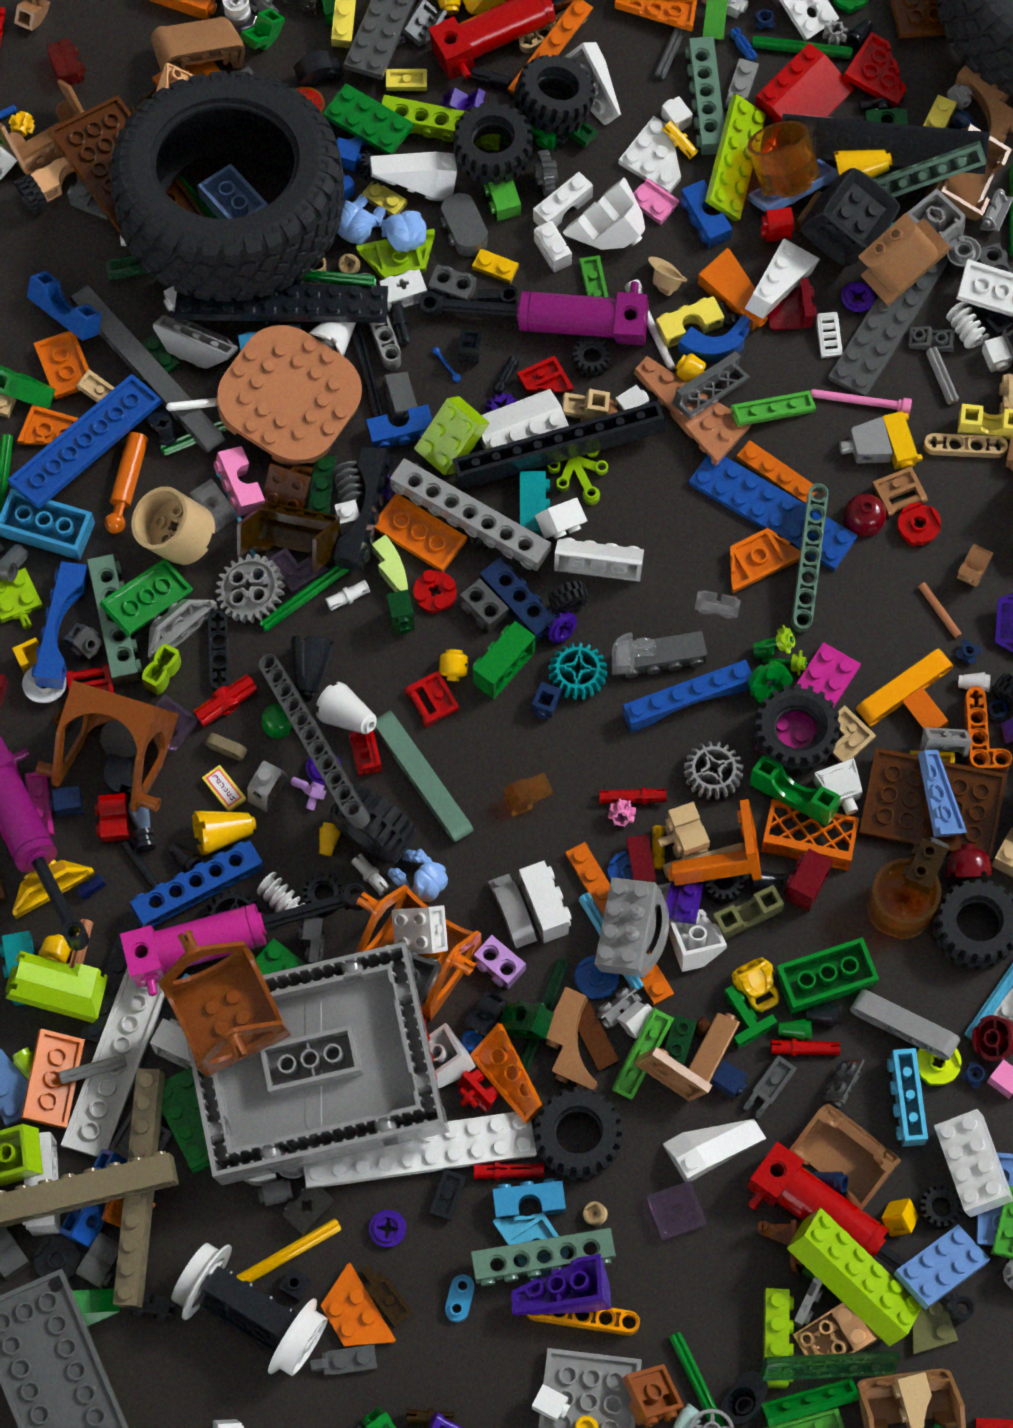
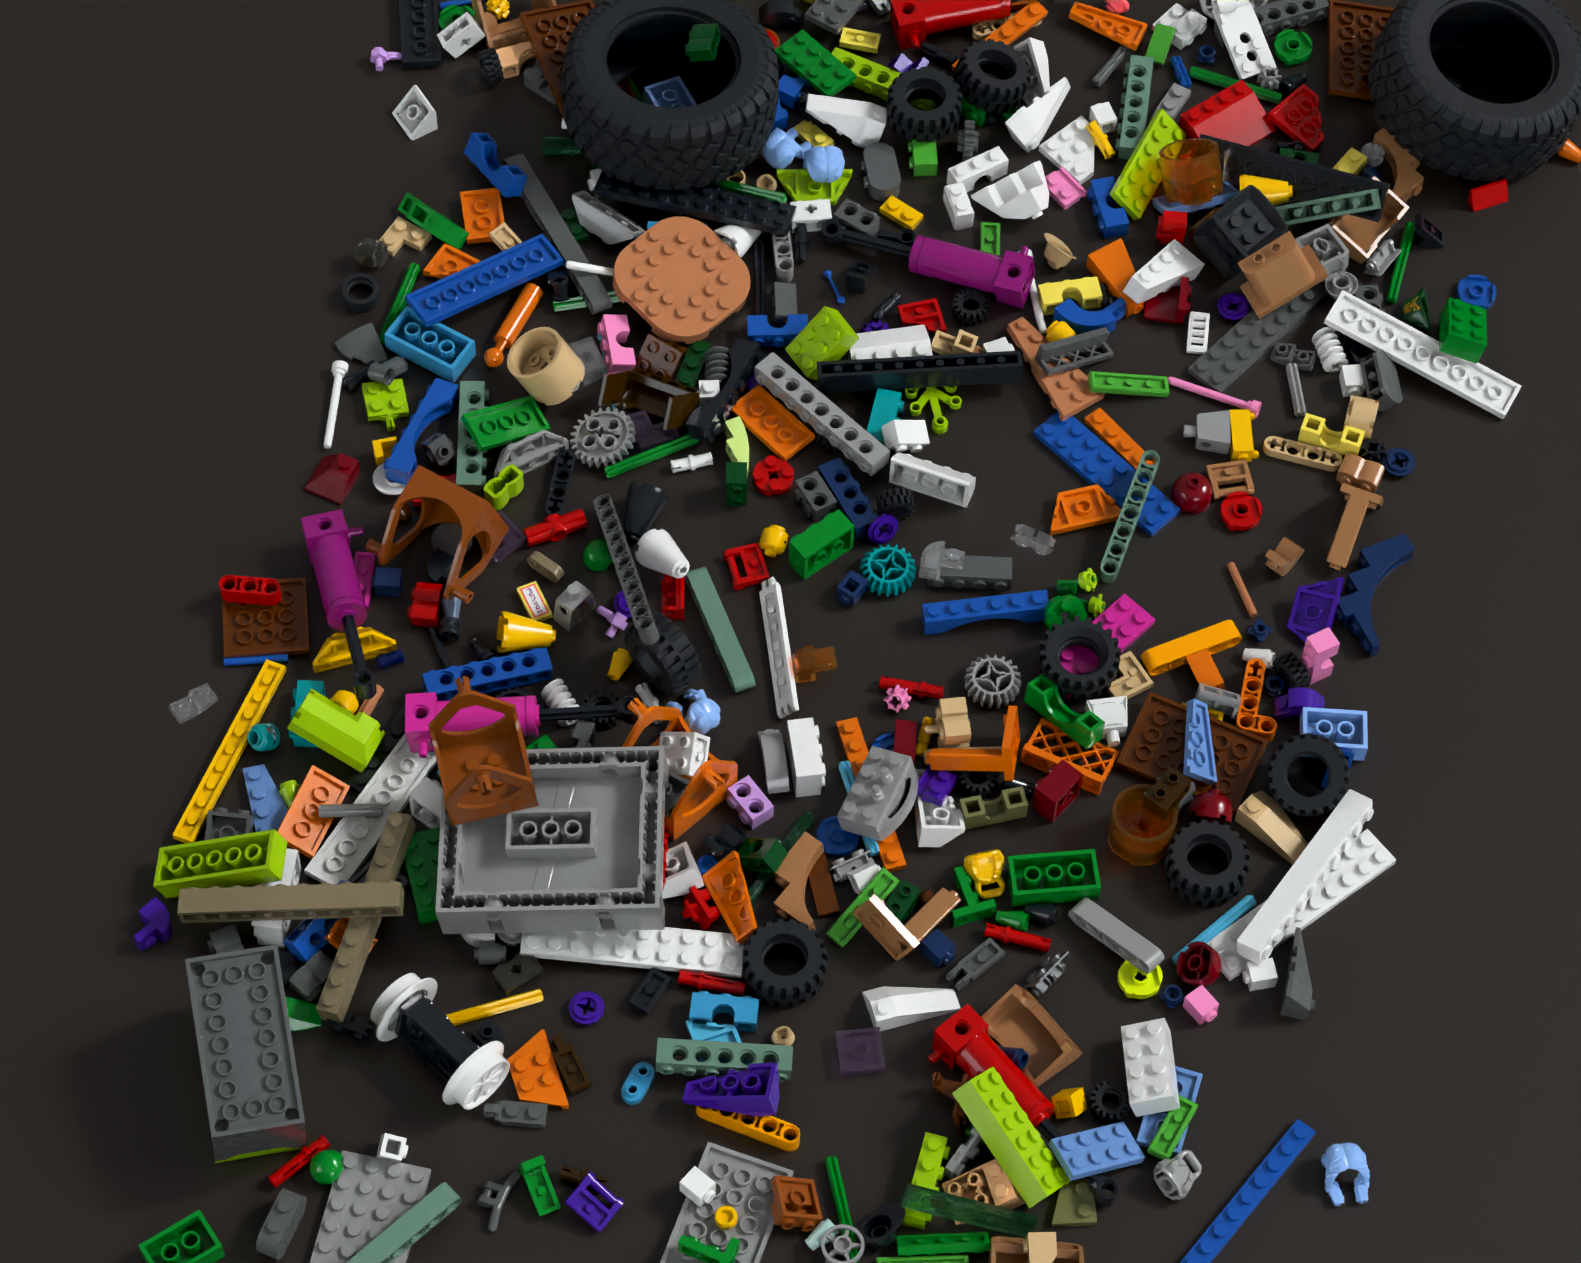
camera: 10 degrees right, 10 degrees down
(254, 135) = (703, 42): none -> dark green brick
(487, 783) = (778, 648): none -> white hinge
(606, 139) = (1031, 123): none -> white wedge
(908, 1096) = (1103, 999): medium azure brick -> none

